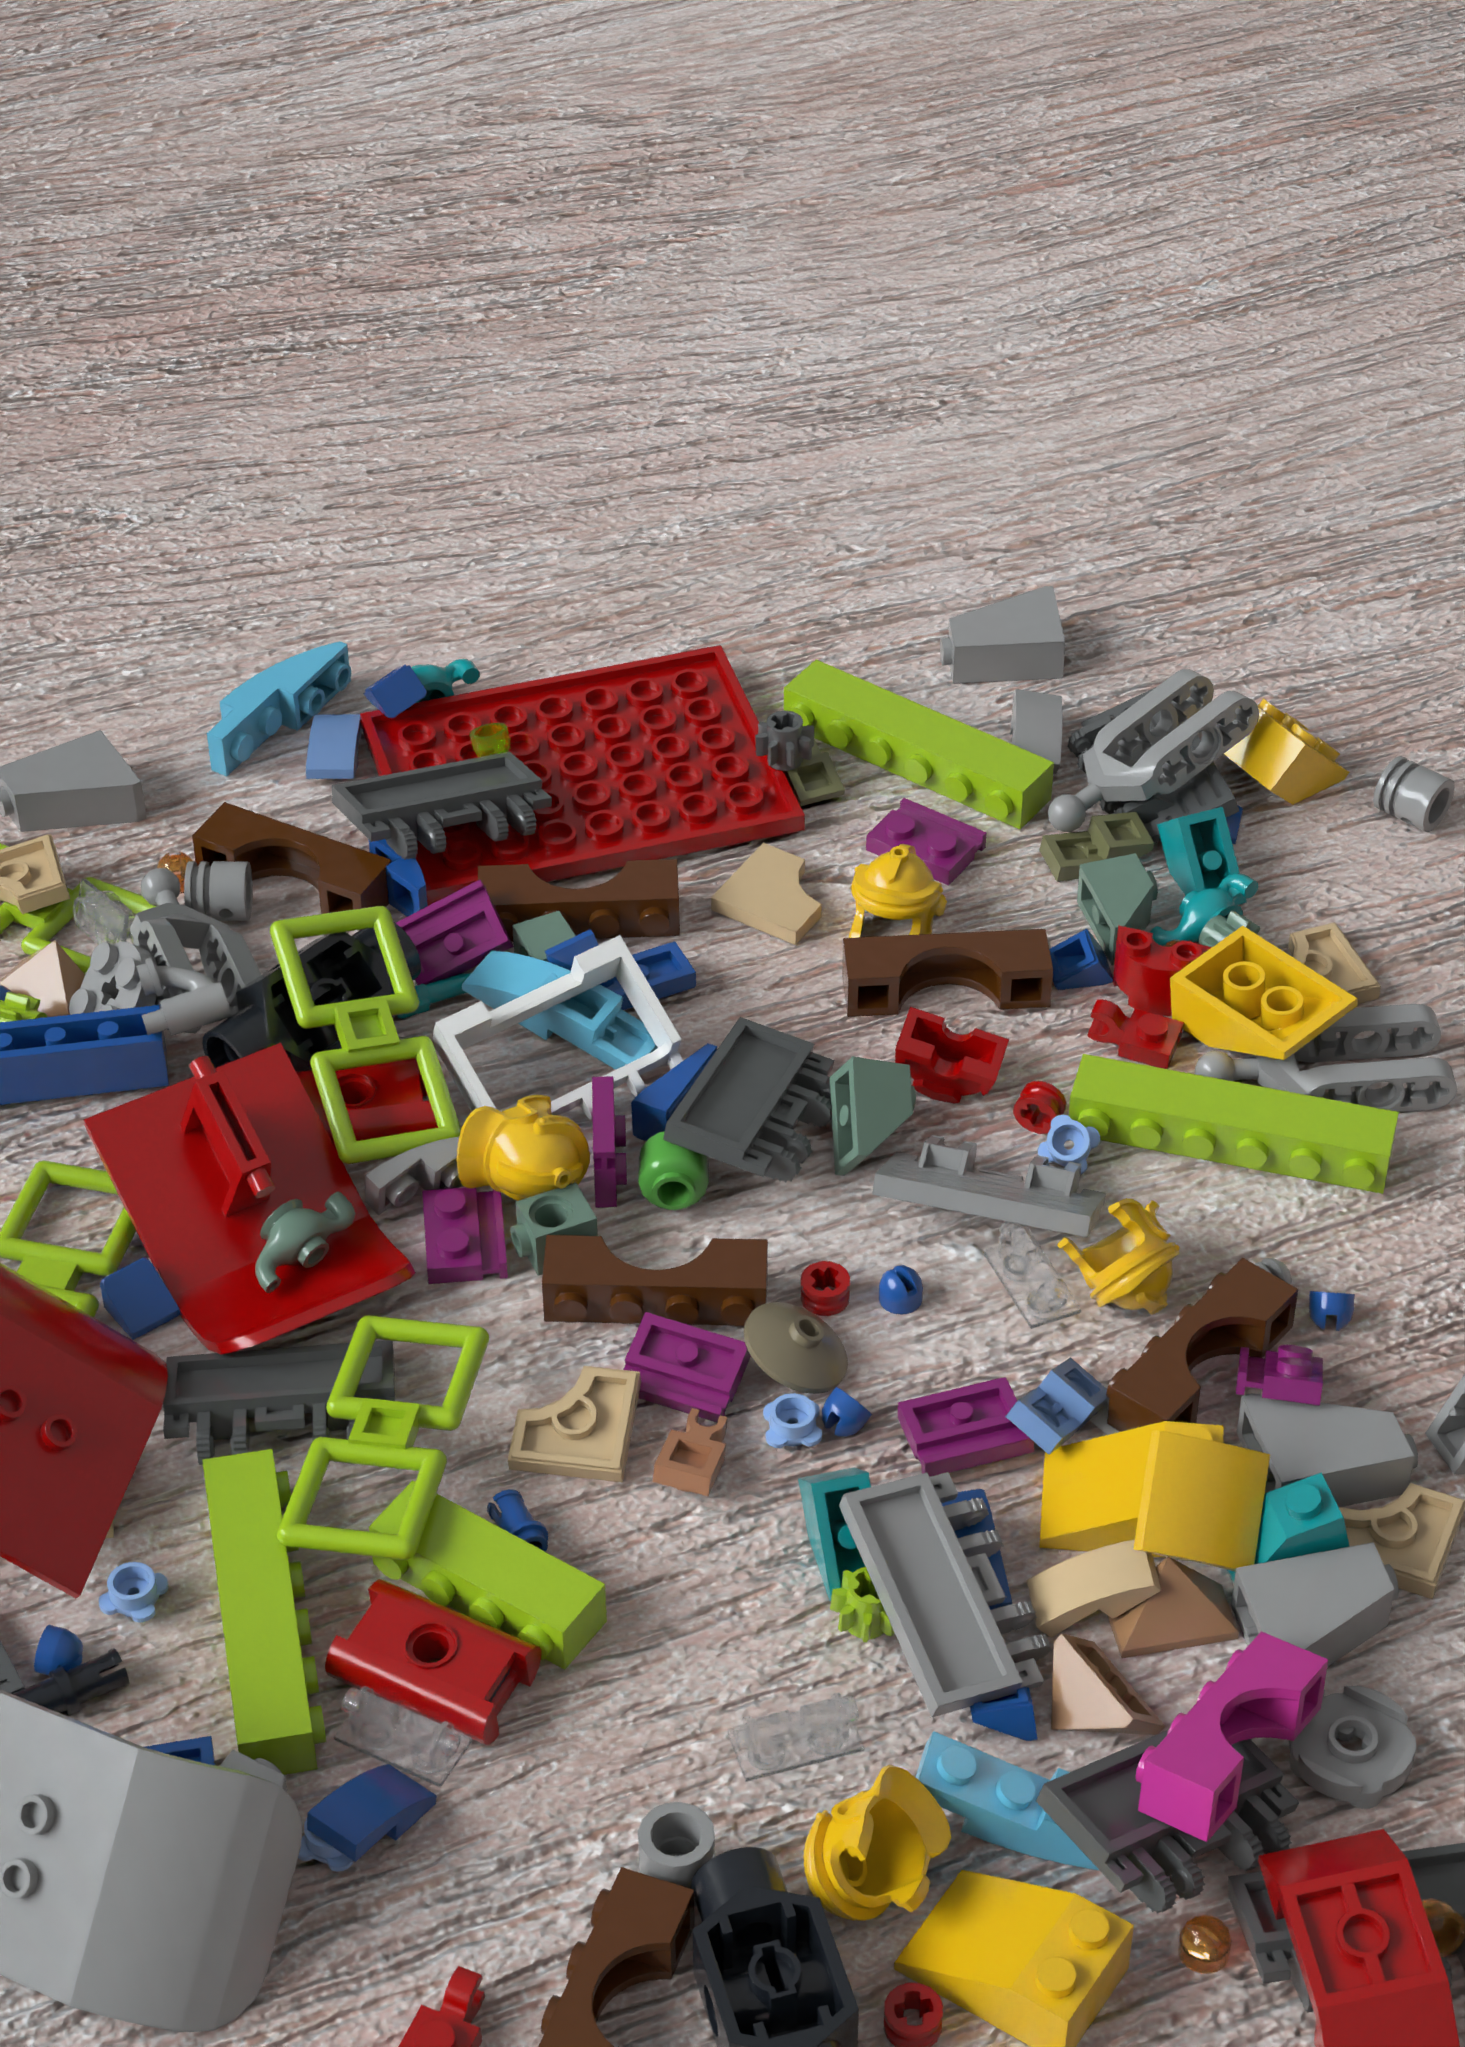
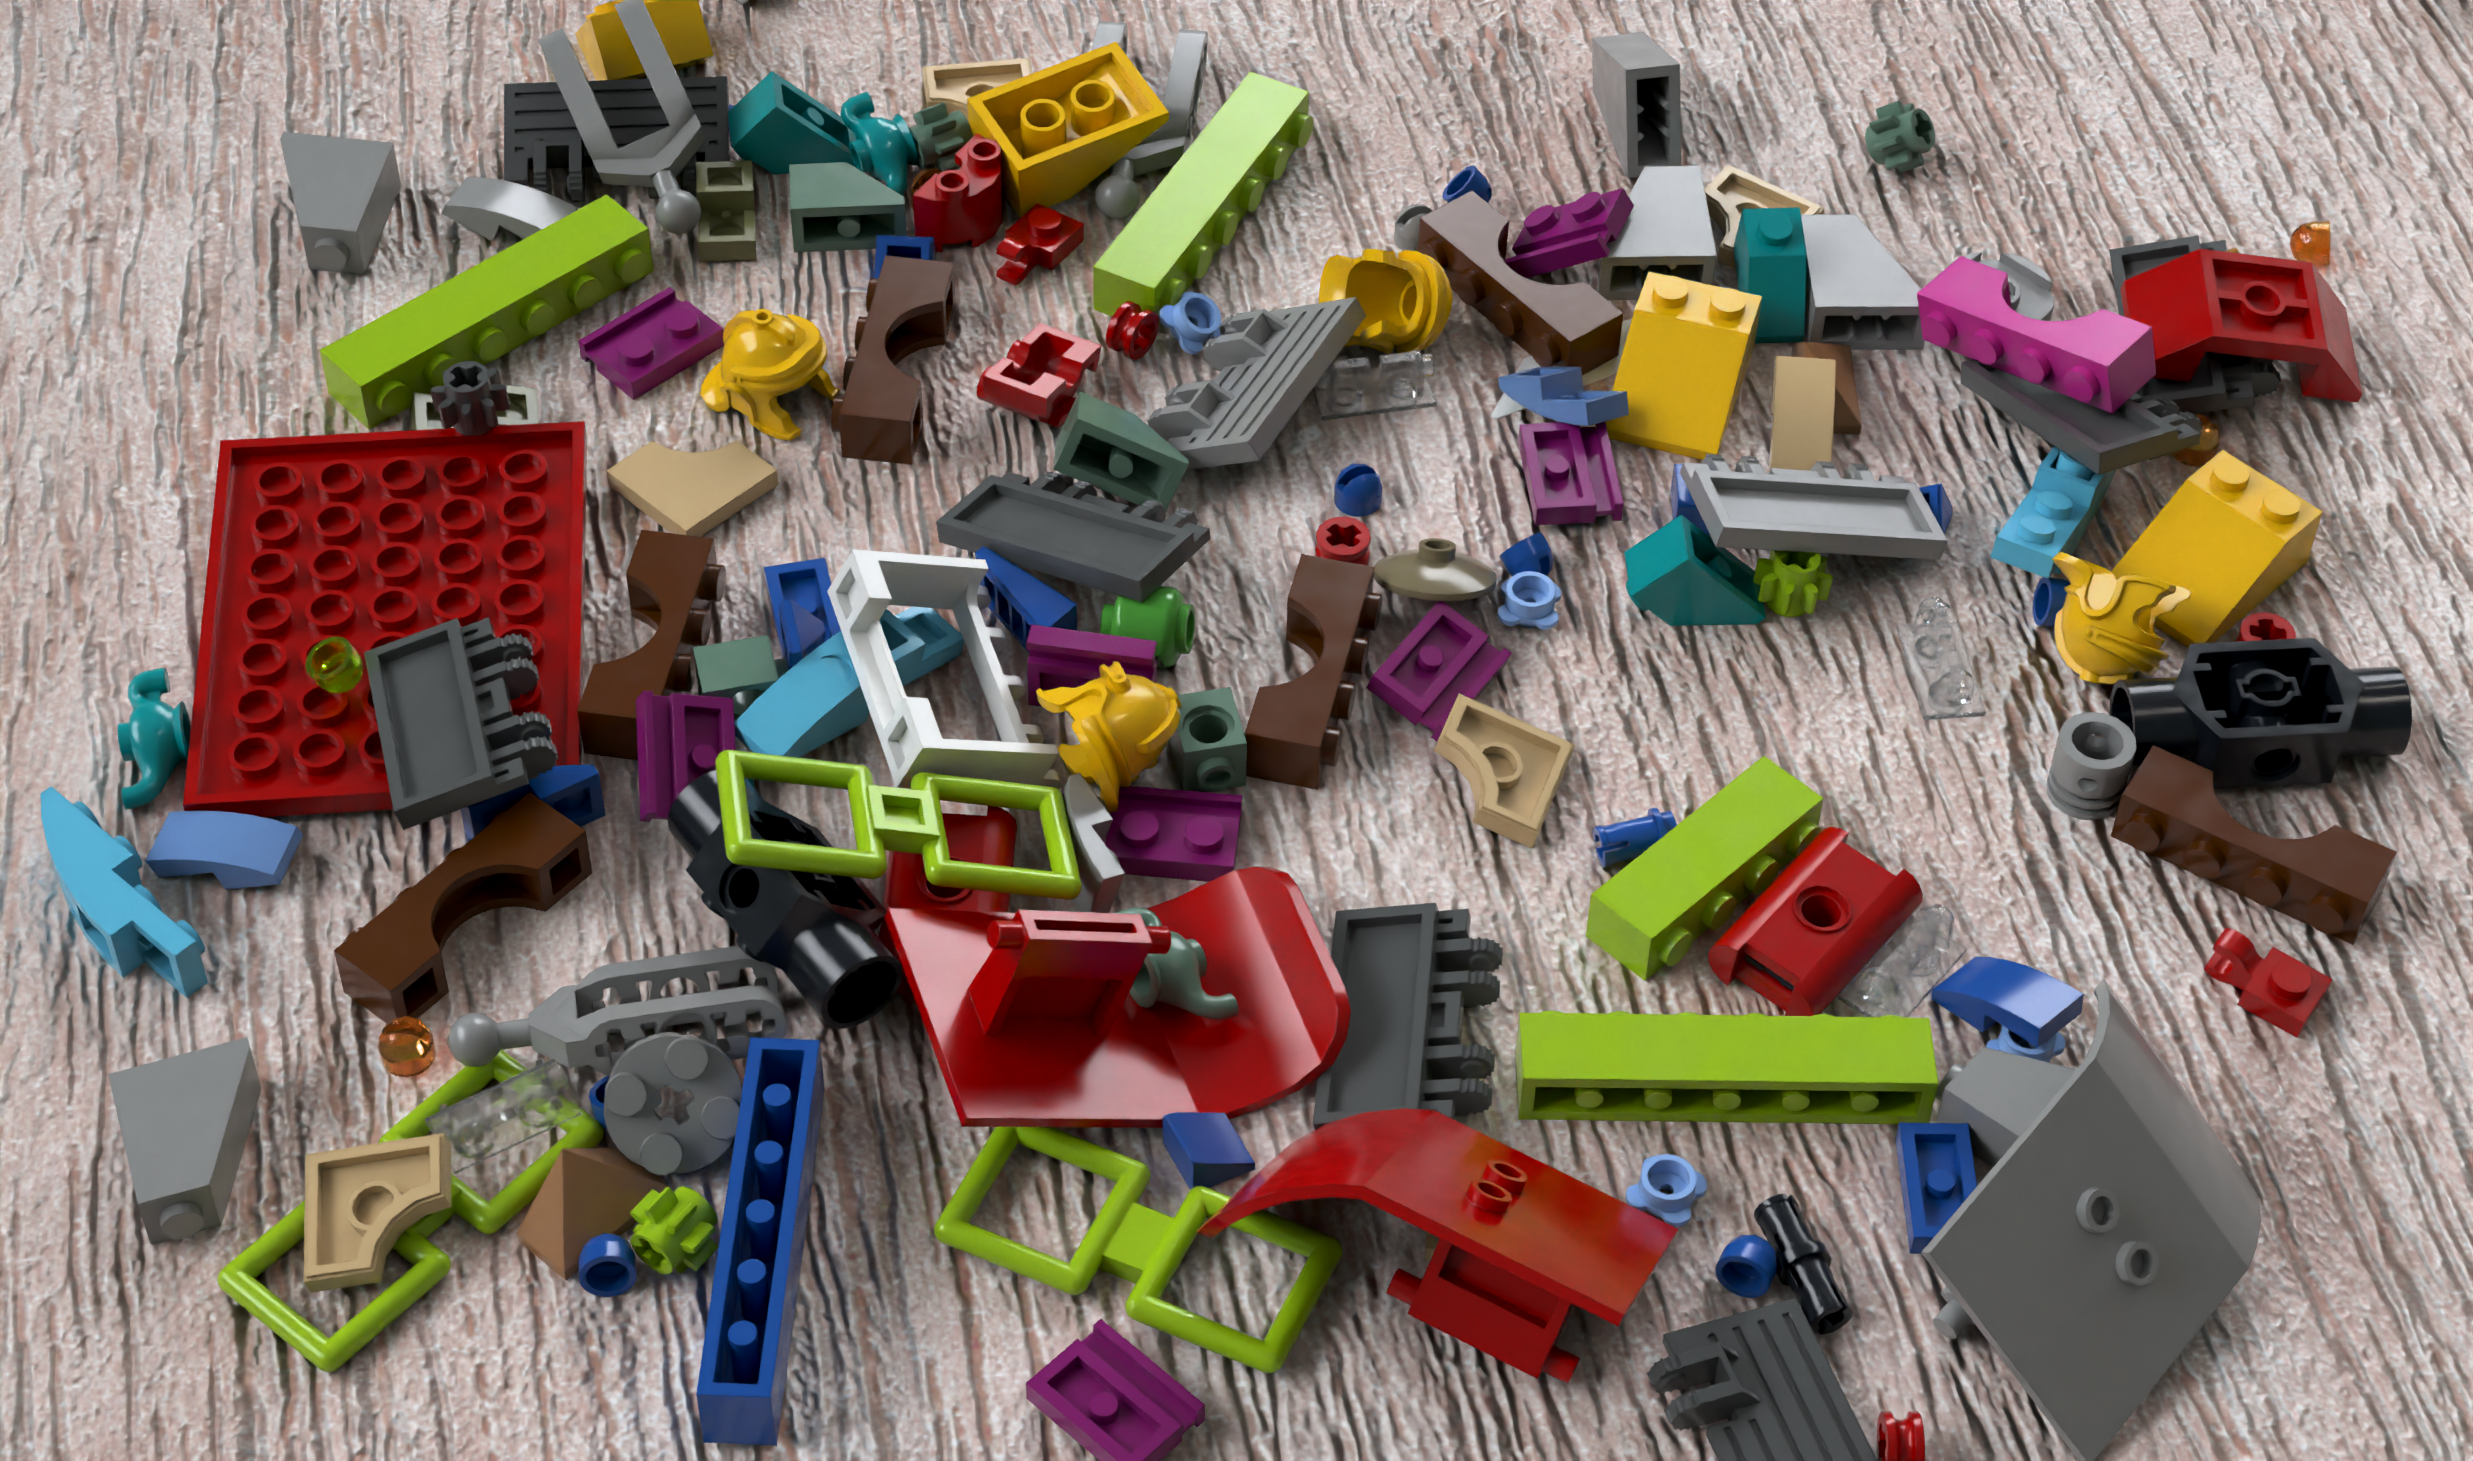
camera: 80 degrees left, 5 degrees up
(198, 1007) = (799, 993): light grey plant -> none
(220, 889) = (490, 979): light grey piece -> none
(384, 1438) = (1526, 905): lime bar -> none
(396, 691) = (173, 751): blue slope -> none
(692, 1458) = (1567, 685): nougat plate -> none
(1093, 1694) = (1919, 453): medium nougat slope -> none
(1201, 1501) = (1761, 295): yellow slope -> none

